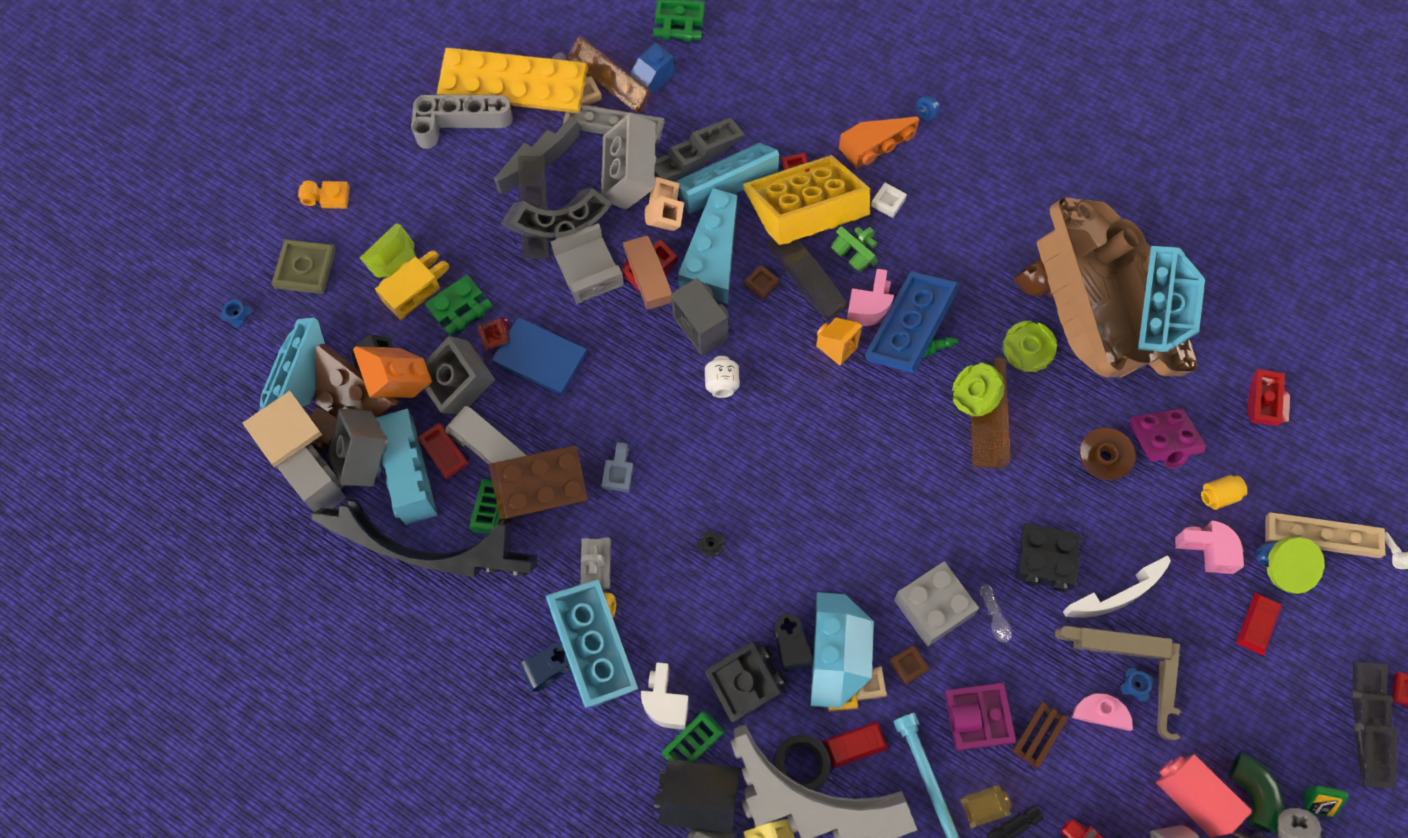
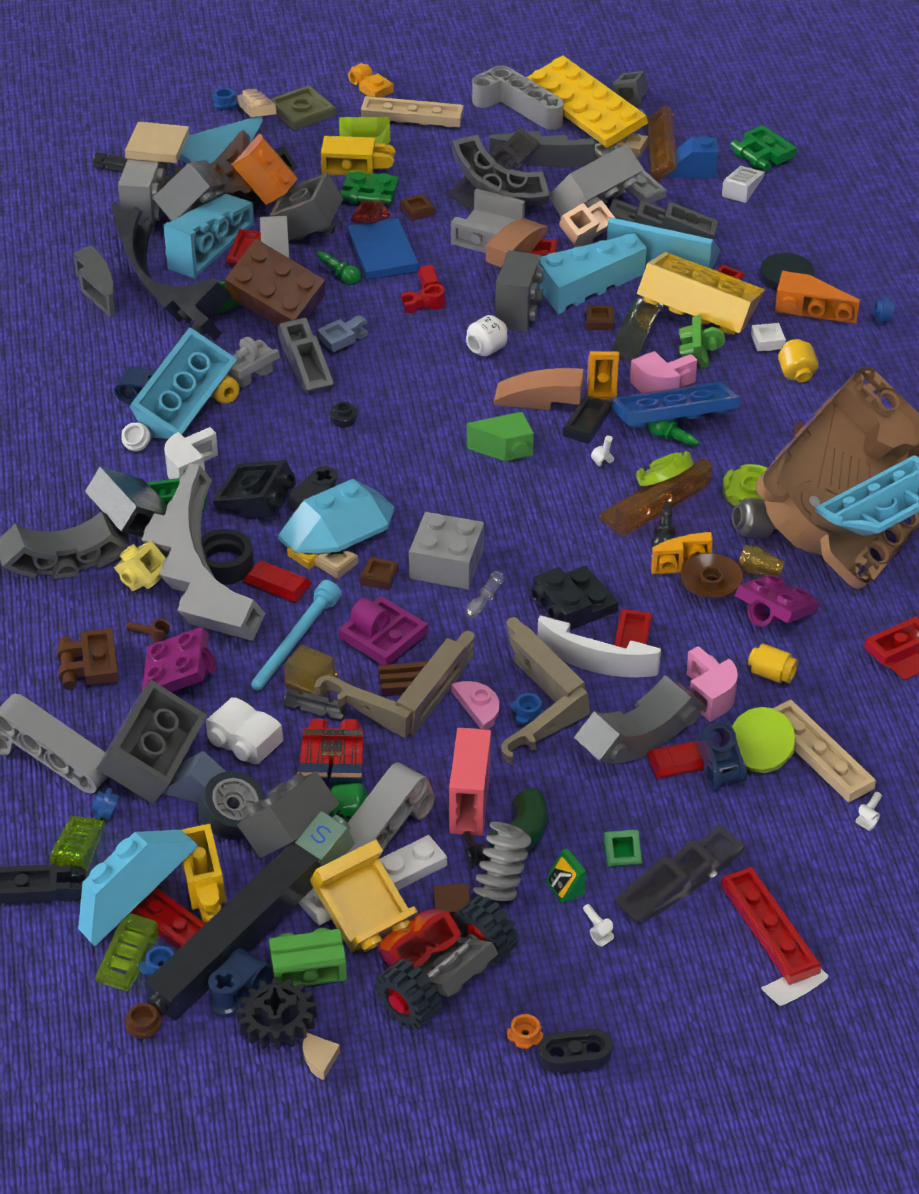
camera: 45 degrees right, 25 degrees down
(234, 457) = (112, 162): none -> black axle
(283, 303) = (256, 103): none -> tan plate
(376, 594) = (95, 278): none -> dark grey slope
(396, 198) = (413, 111): none -> tan plate
(513, 291) = (417, 207): none -> reddish brown tile
(527, 38) = (631, 87): none -> dark grey brick
(547, 404) = (348, 273): none -> green bar
(601, 718) = (135, 436): none -> white plate
(623, 519) = (304, 355): none -> dark grey slope
(633, 369) = (431, 295): none -> red bar
(709, 77) = (741, 183): none -> white slope
(812, 391) = (541, 388): none -> nougat slope
(825, 124) = (774, 265): none -> black tile
(844, 460) = (501, 437): none -> bright green slope
(865, 386) = (587, 419): none -> black tile
(917, 411) = (603, 452): none -> white hand
(934, 206) = (798, 360): none -> yellow head
(1036, 449) = (664, 530): none -> black bar
(1067, 455) = (673, 553): none -> light orange slope
(1072, 376) = (752, 519): none -> flat silver head
(1077, 746) = (419, 698): none -> dark tan hinge
(1113, 411) = (758, 561): none -> clear yellow cone
(1116, 551) = (632, 626): none -> red tile
(1223, 630) = (650, 725): none -> dark grey brick
(1292, 605) = (722, 757): none -> dark blue piece
(1314, 736) = (622, 848): none -> green slope
(1388, 817) = (601, 931): none -> white hand

